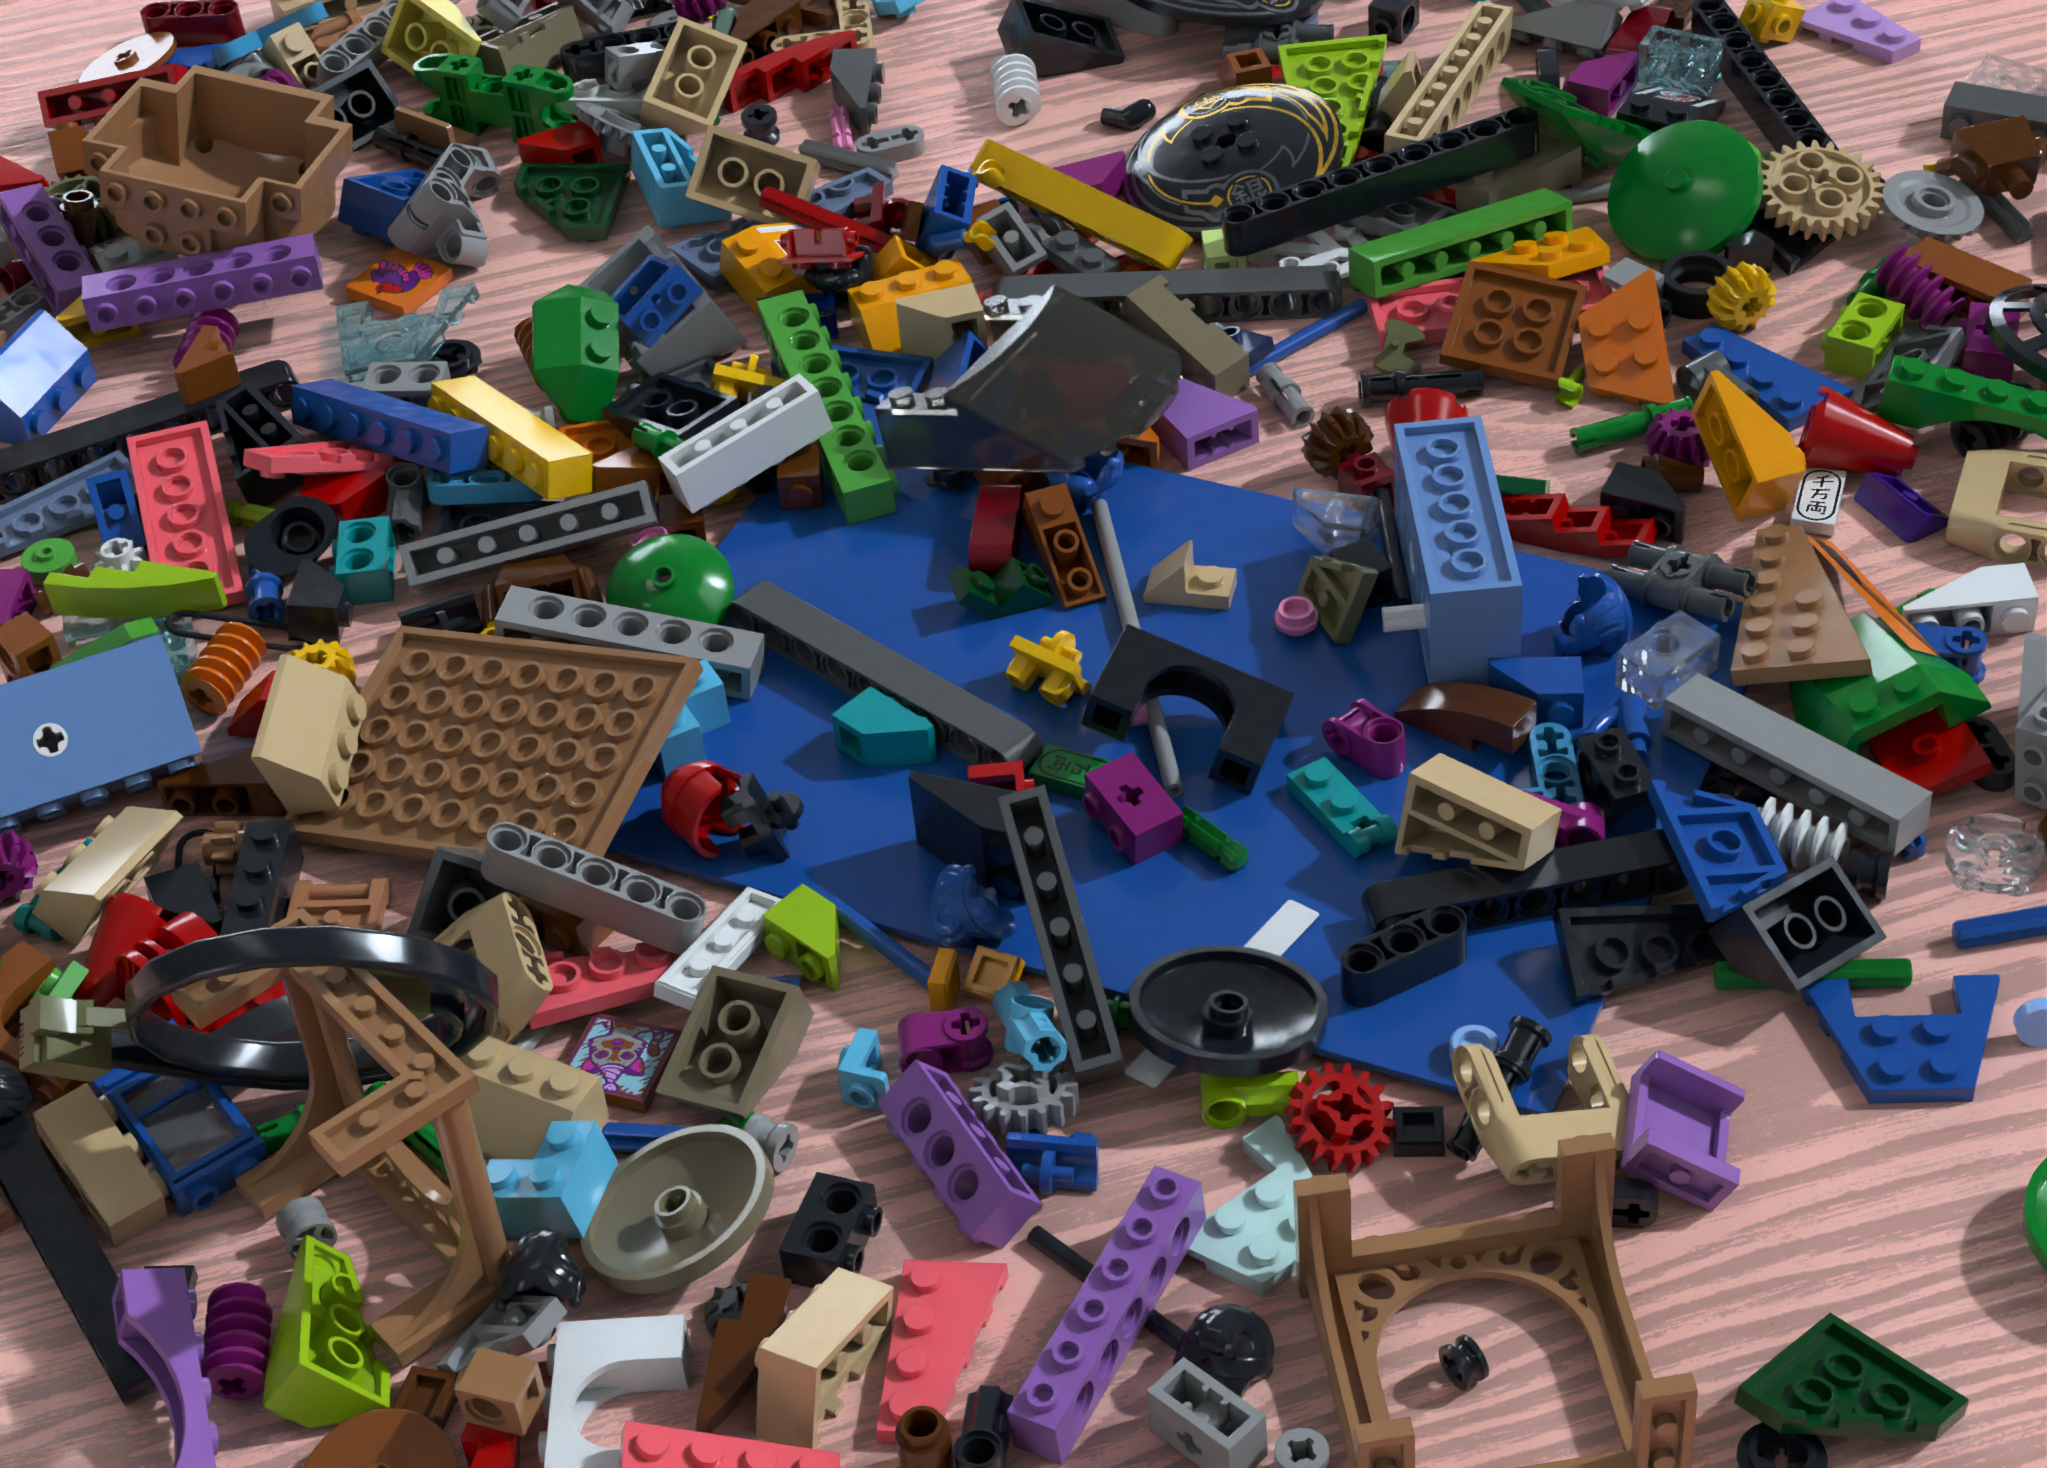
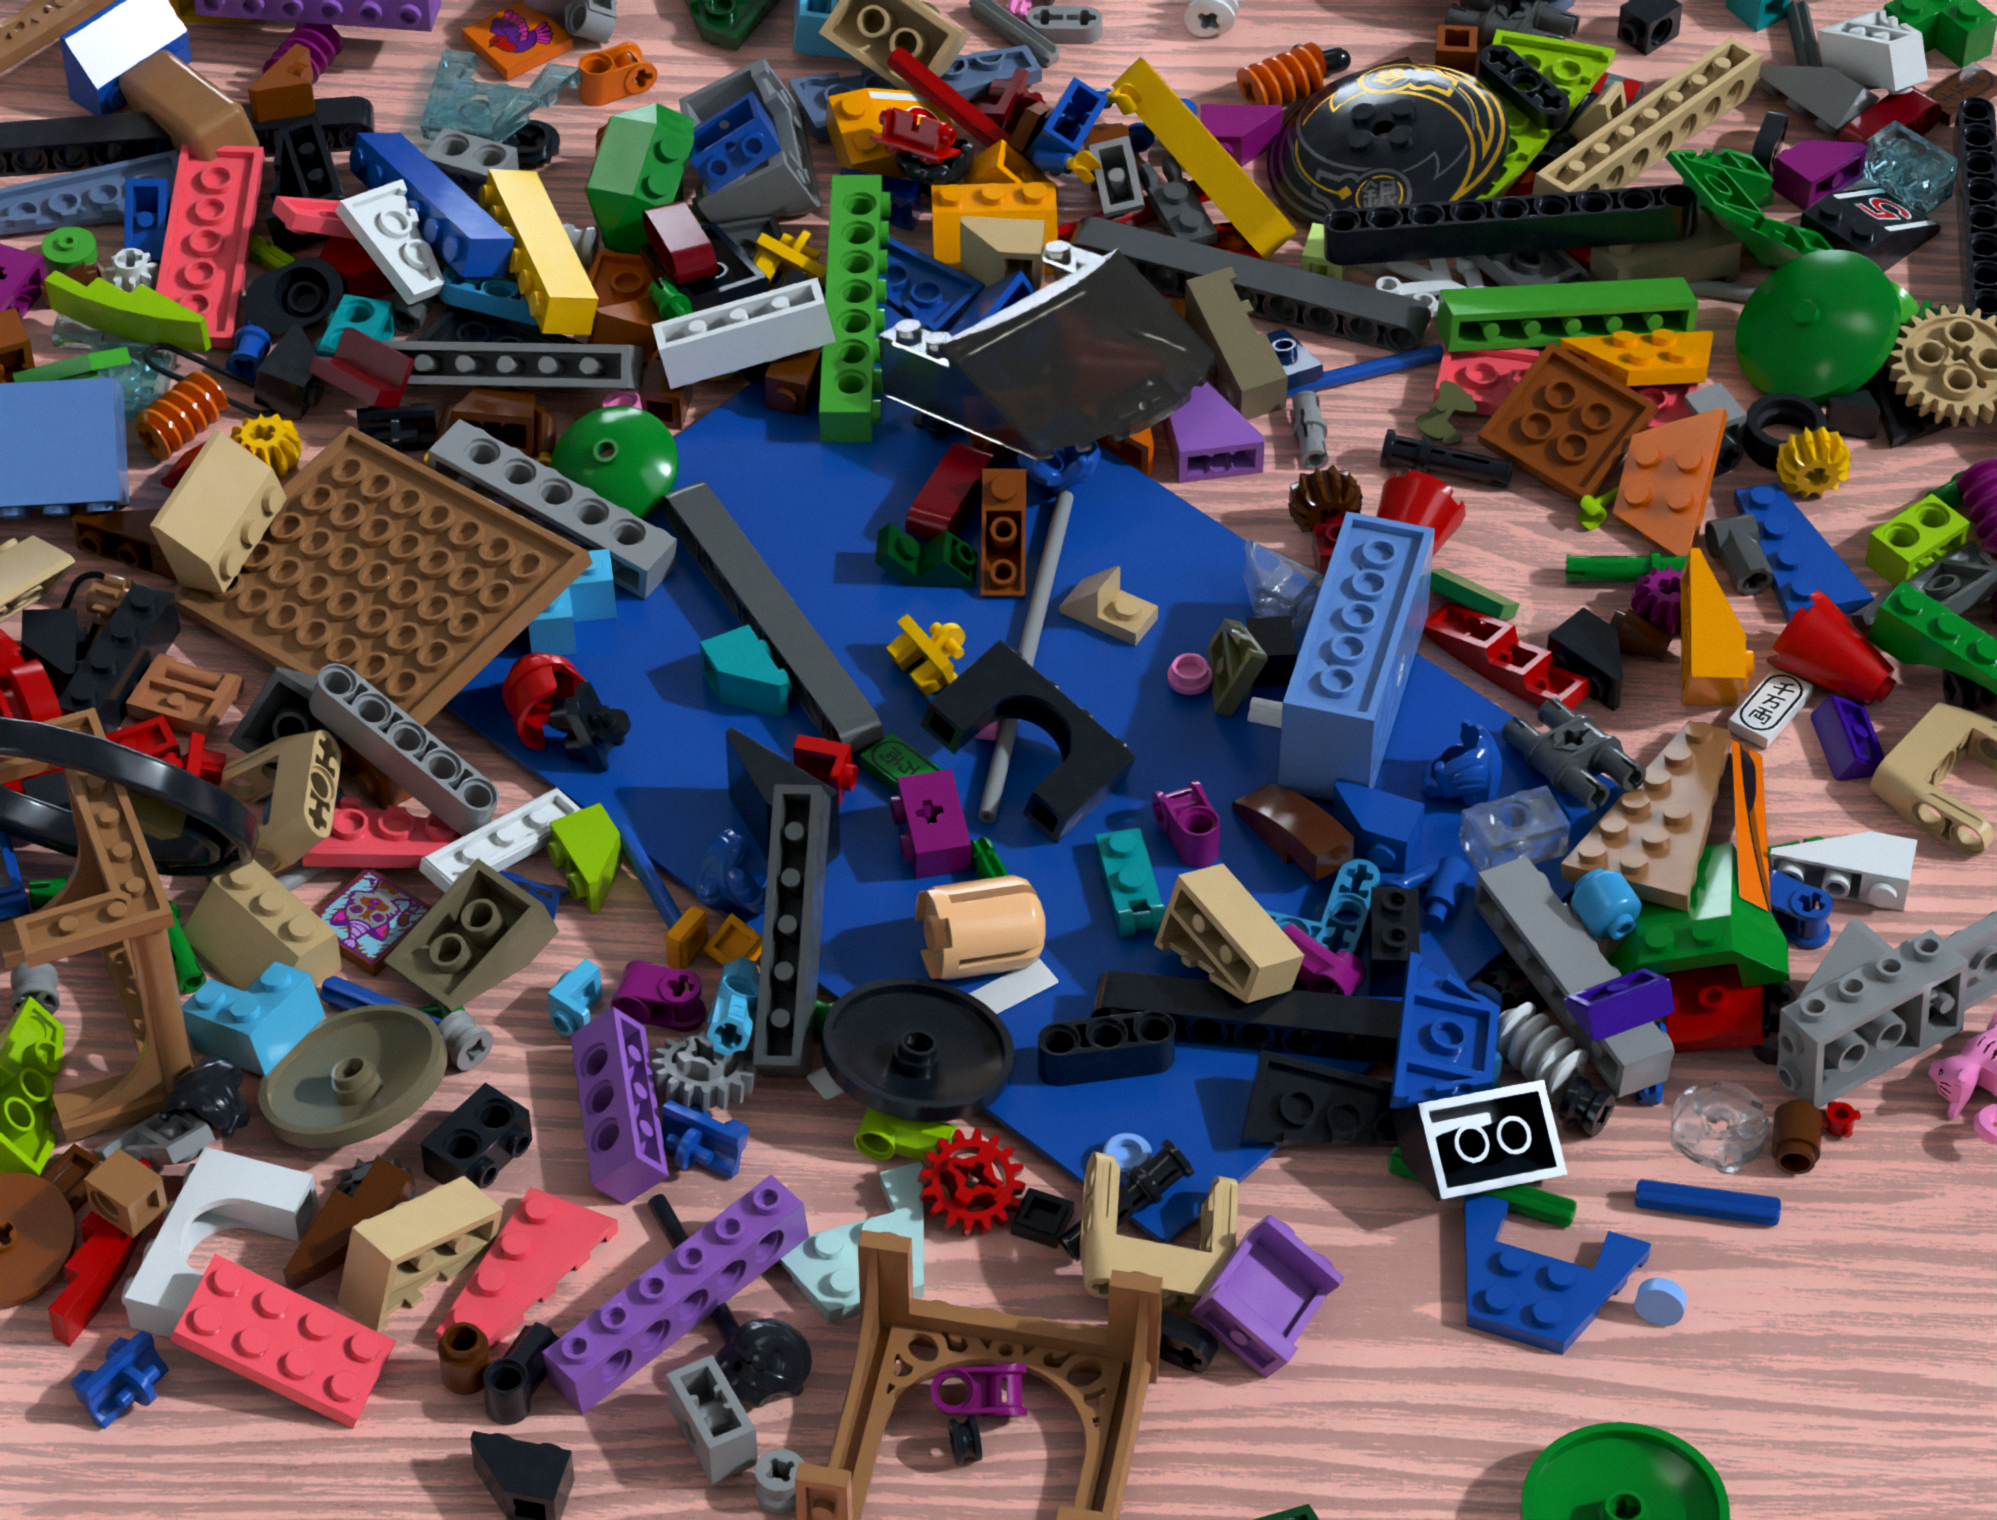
camera: 15 degrees right, 5 degrees up
(115, 407) = (186, 105): none -> medium nougat piece
(367, 458) = (391, 238): none -> white wing
(392, 574) = (365, 369): none -> dark red panel
(506, 285) = (610, 74): none -> orange piece
(643, 391) = (680, 243): none -> dark red beam
(1109, 131) = (1283, 76): none -> orange piece
(1228, 883) = (980, 927): none -> light nougat cylinder
(1348, 88) = (1529, 102): none -> black beam
(1464, 1308) = (984, 1391): none -> magenta piece
(1796, 690) = (1606, 904): none -> dark azure head
(1865, 767) = (1621, 1003): none -> dark purple slope

